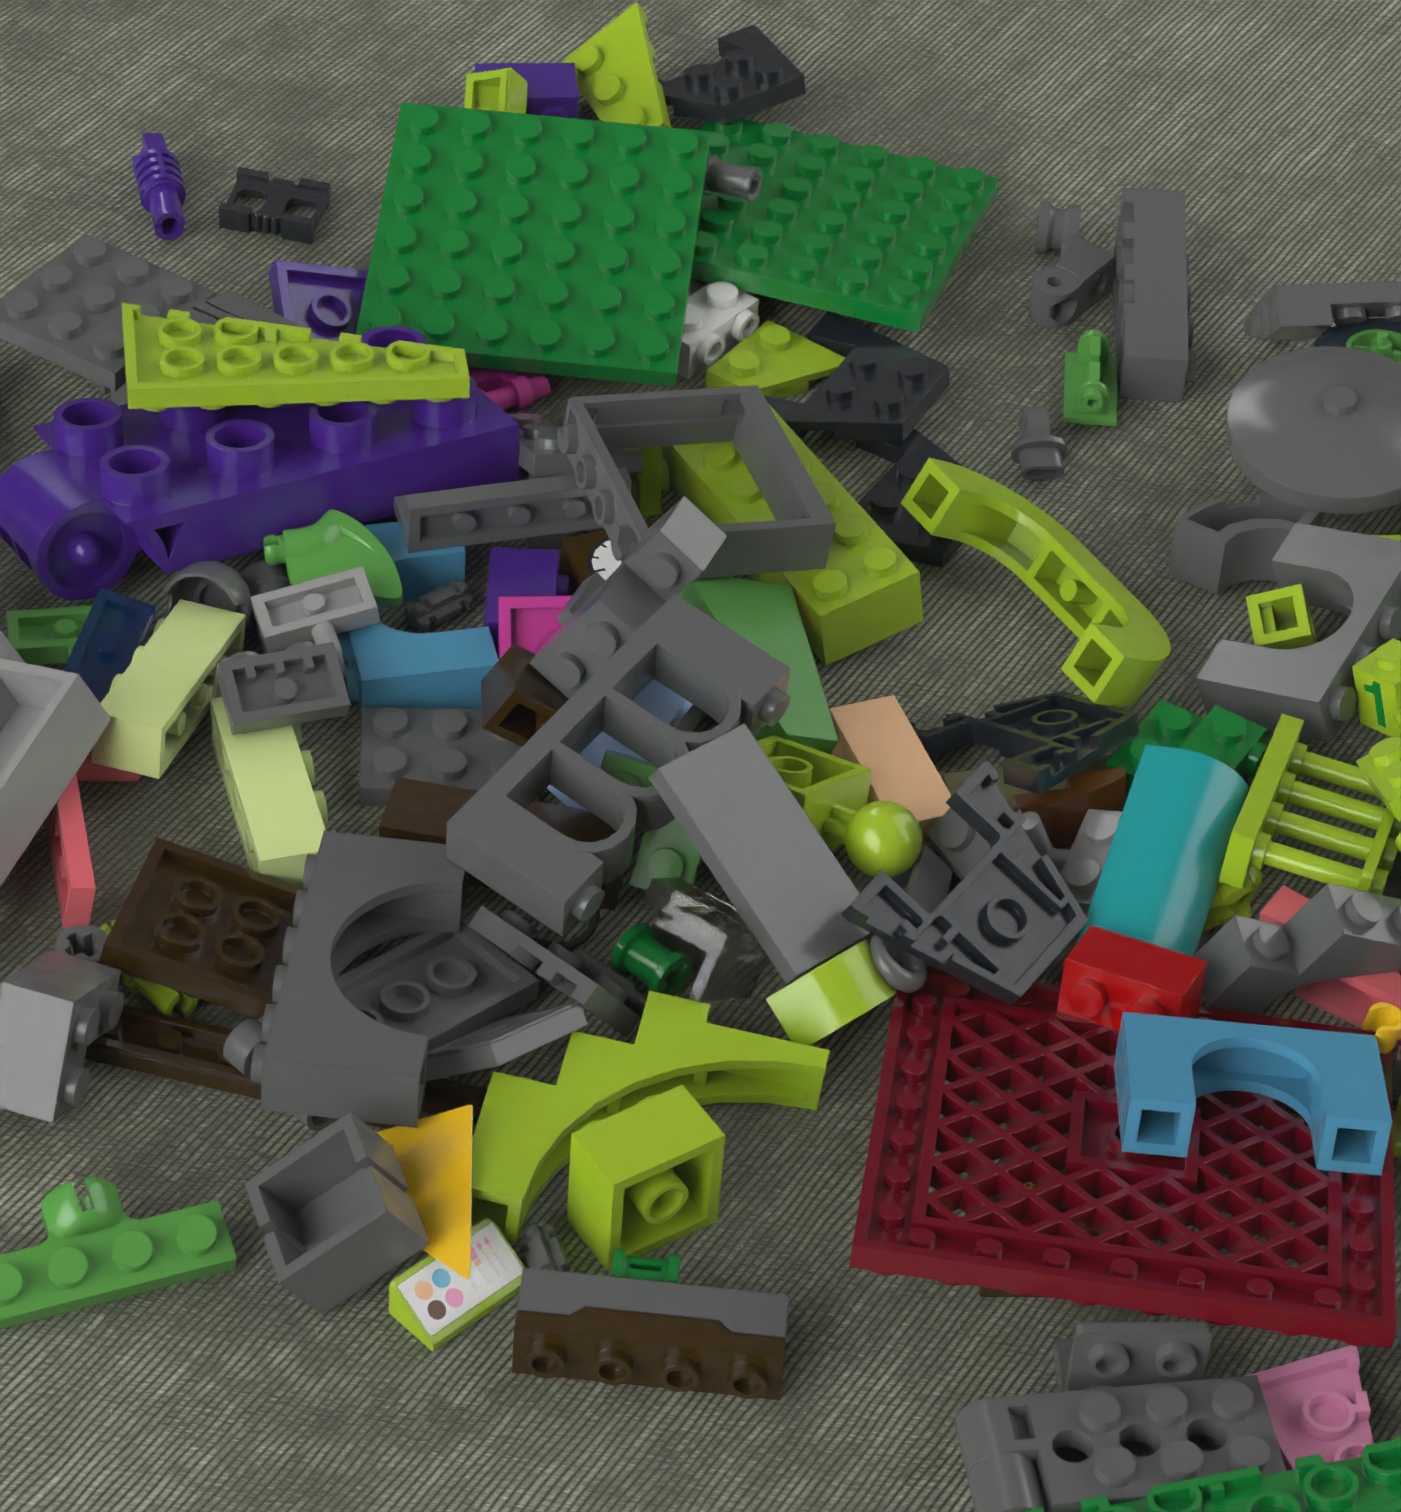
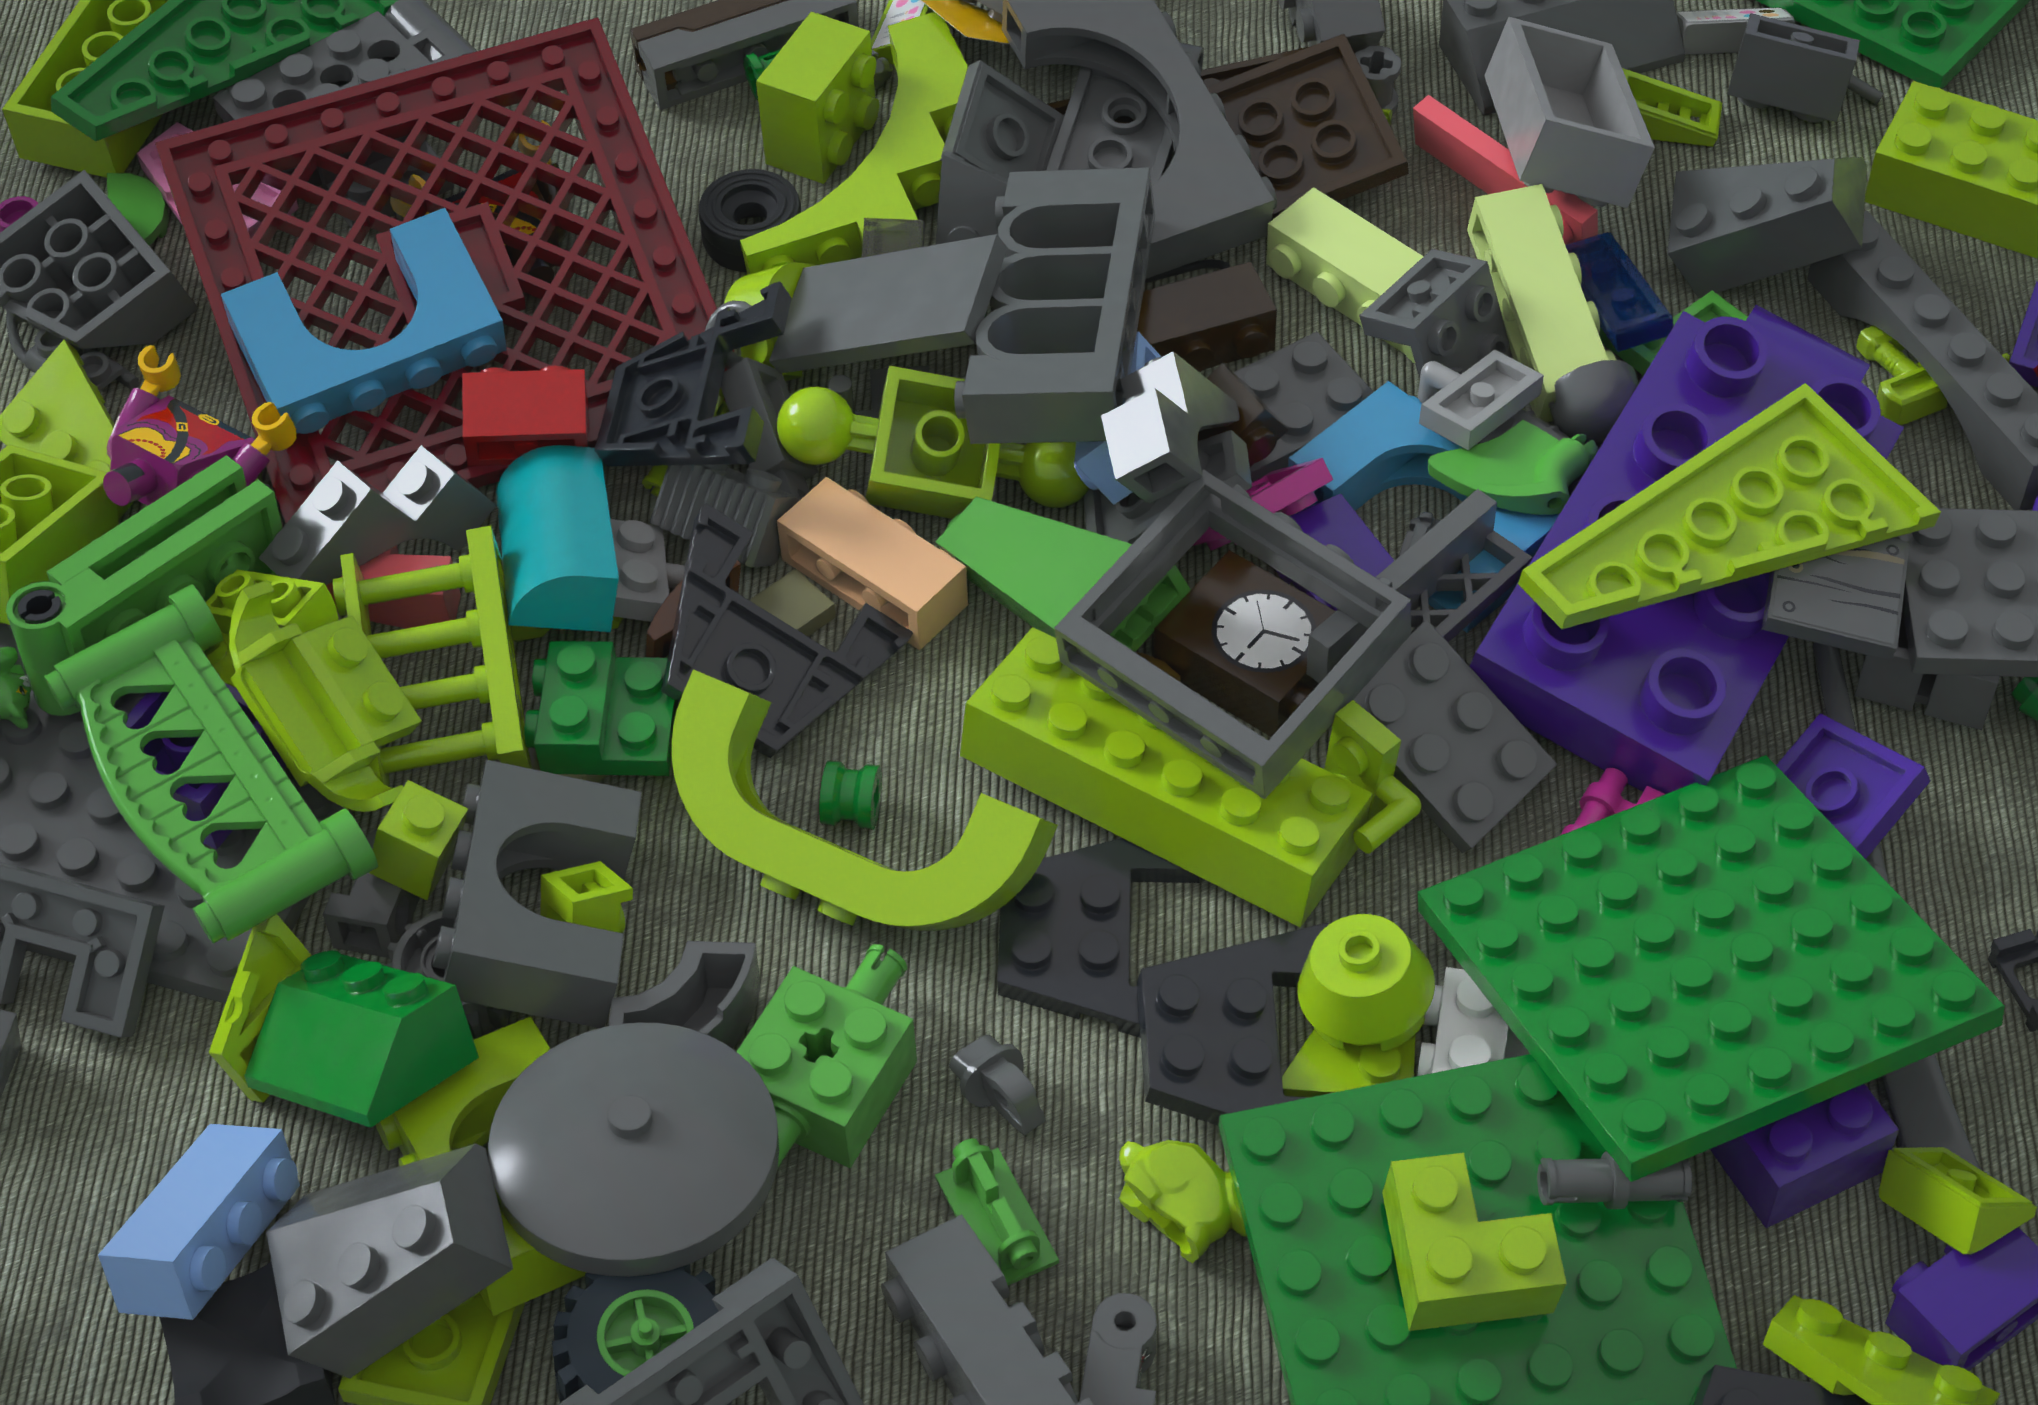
camera: 155 degrees right, 10 degrees up
(760, 341) = (1365, 983): none -> lime cone
(777, 1163) = (742, 196): none -> black tyre
(834, 175) = (1461, 1267): none -> lime brick
(957, 336) = (1180, 1194): none -> lime animal
(1025, 635) = (850, 795): none -> green wheel
(1148, 483) = (833, 1056): none -> bright green brick

